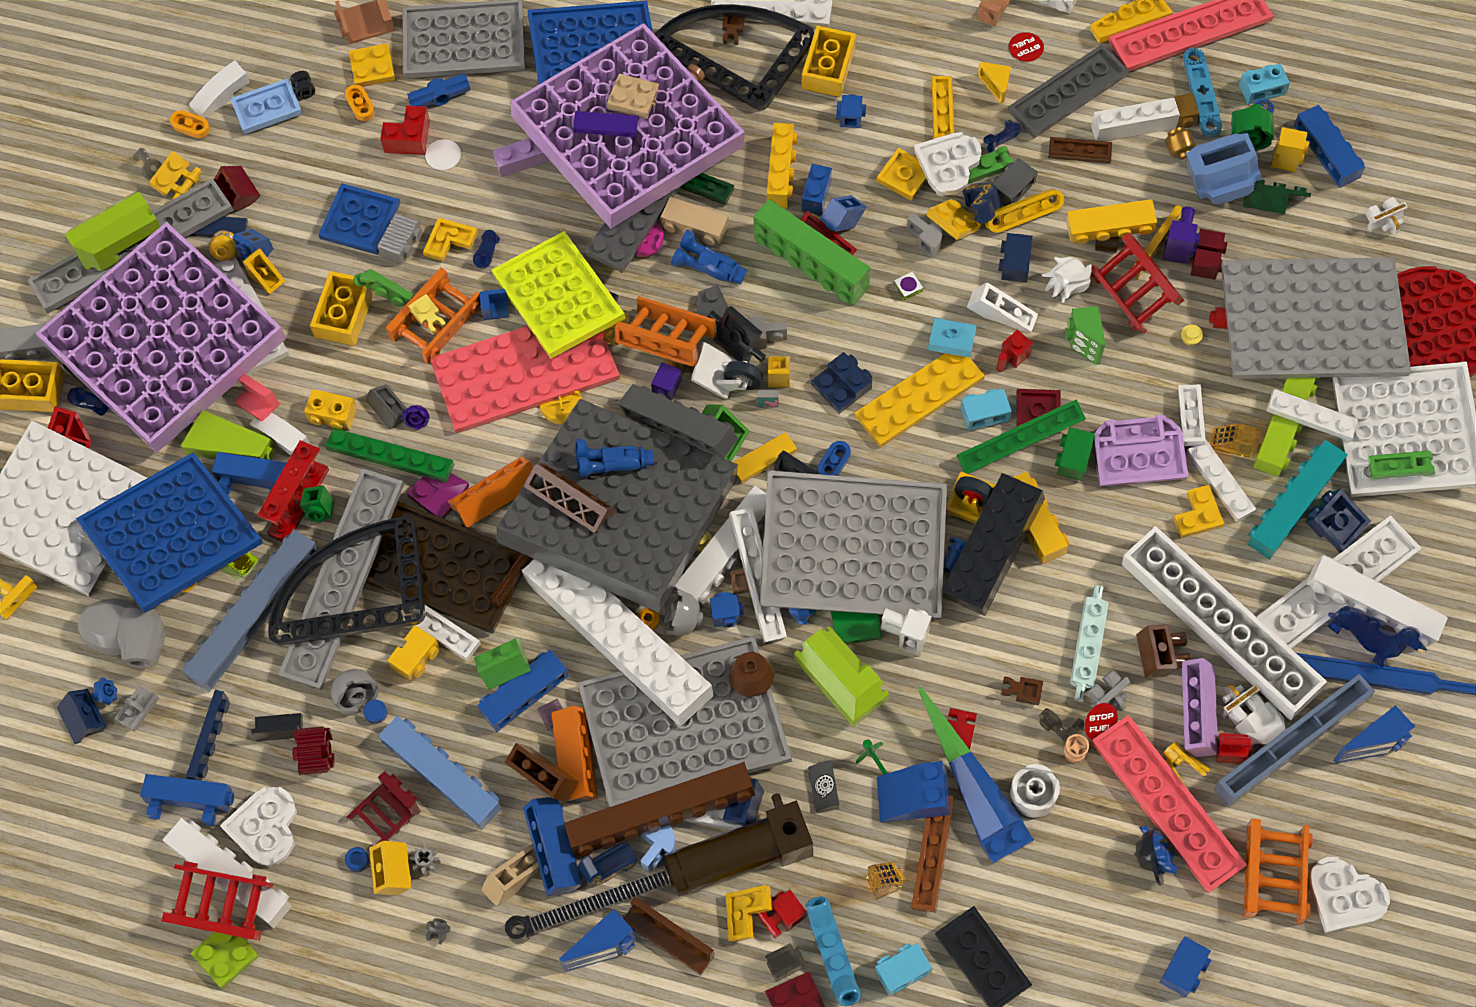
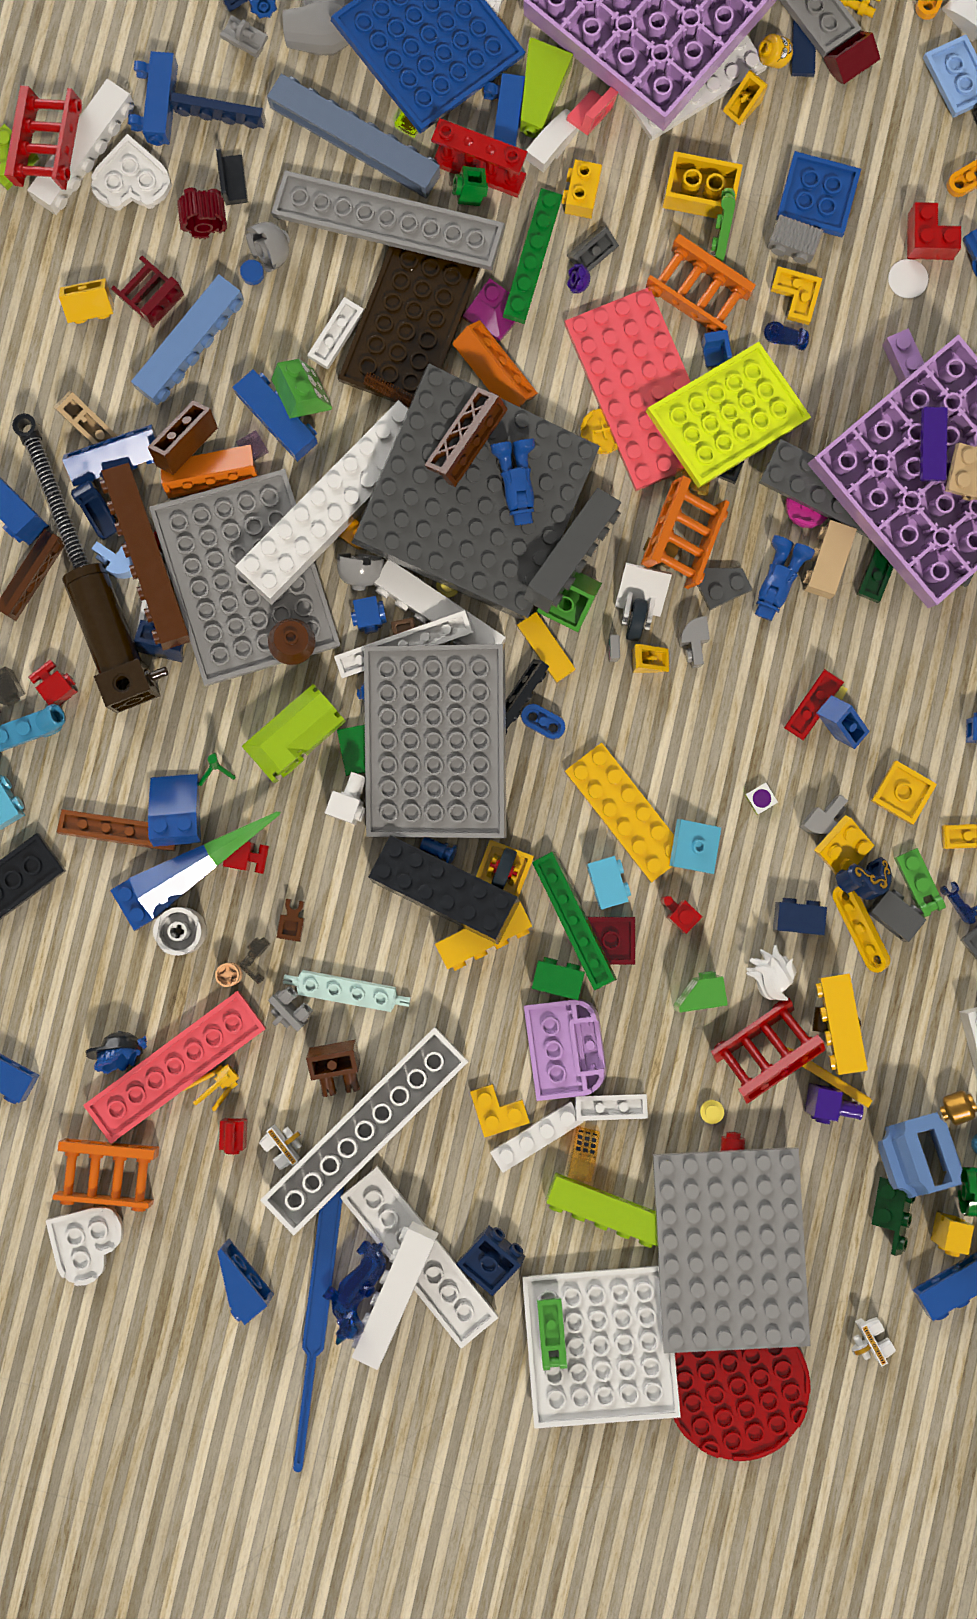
camera: 85 degrees right, 20 degrees up
(251, 240) = (778, 78): blue slope -> none
(332, 548) = (355, 287): black beam -> none
(357, 859) = (101, 269): blue tile -> none
(414, 655) = (310, 303): yellow brick -> none
(425, 867) = (100, 341): light grey gear -> none
(426, 311) = (698, 273): light yellow plate -> none
(439, 927) = (31, 354): dark grey plate -> none
(667, 380) = (629, 539): dark purple brick -> none
(737, 335) = (684, 611): black plate -> none
(740, 908) = (56, 644): yellow plate -> none
(780, 164) = (907, 652): yellow brick -> none
(811, 252) = (794, 685): bright green brick -> none
(816, 189) = (877, 693): blue brick -> none
(824, 786) = (185, 721): dark grey slope -> none
(842, 382) = (637, 728): dark blue plate -> none
(884, 879) = (85, 781): clear yellow slope -> none
(948, 161) = (917, 839): white plate -> none
(1001, 308) = (734, 901): white slope -> none
(1080, 150) = (947, 992): reddish brown tile -> none
(1100, 719) = (257, 999): red sticker -> none
(1199, 708) = (272, 1102): lavender brick -> none
(1208, 254) = (807, 1133): dark red piece -> none
(1262, 724) = (258, 1169): white slope -> none
(1294, 740) = (240, 1199): sand blue brick -> none
(1297, 498) = (515, 1218): teal brick -> none
(1312, 415) = (609, 1239): white plate -> none

